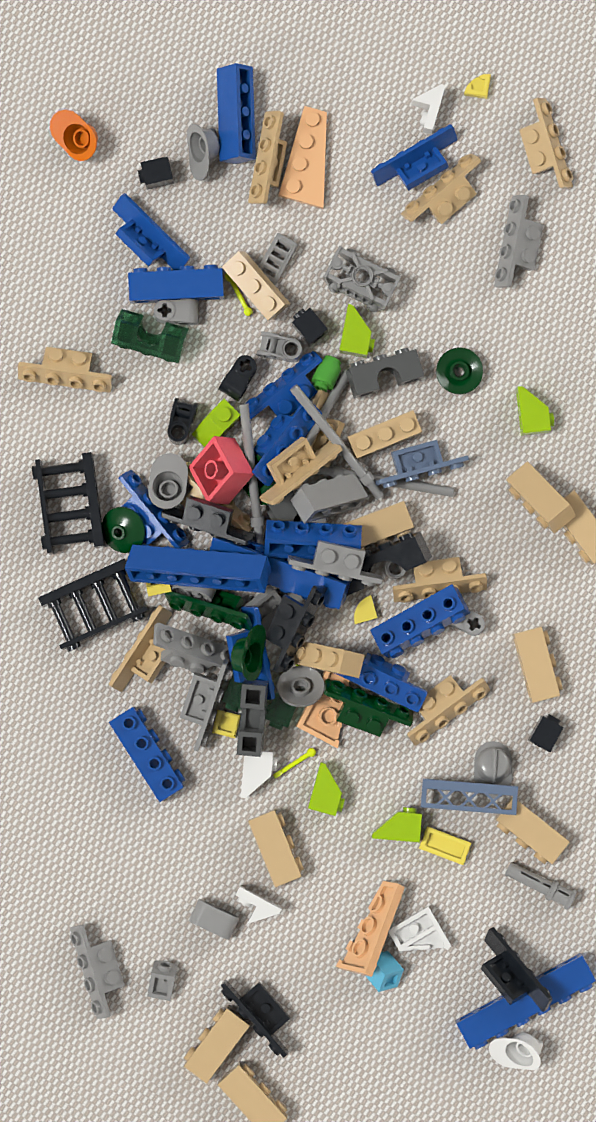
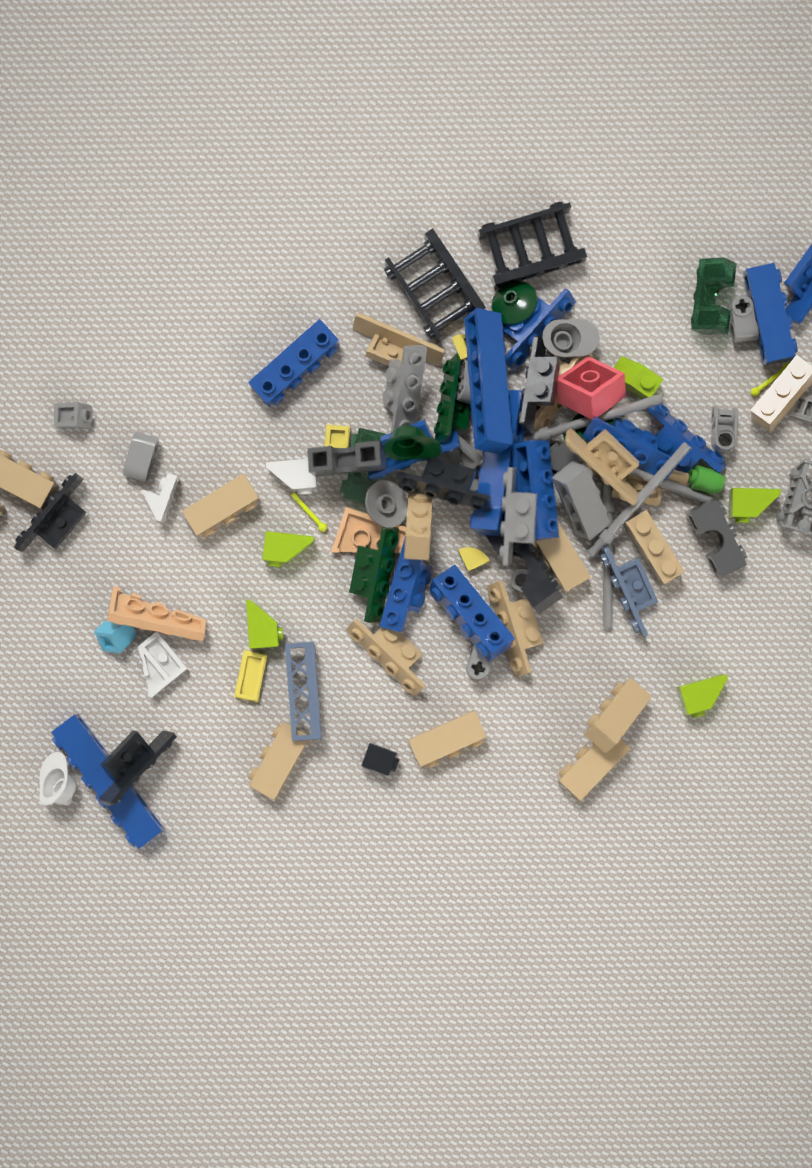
camera: 80 degrees right, 0 degrees up
(65, 369) = (665, 219): tan bracket -> none
(99, 969) = (74, 352): light grey bracket -> none
(182, 417) = (638, 342): black piece -> none
(201, 699) = (355, 407): light grey bracket -> none
(236, 381) = (684, 392): black piece -> none
(309, 326) = (751, 454): black brick -> none
(463, 359) = (741, 605): dark green dish -> none
(493, 765) = (338, 711): light grey piece -> none
(551, 890) = (223, 789): light grey pin -> none

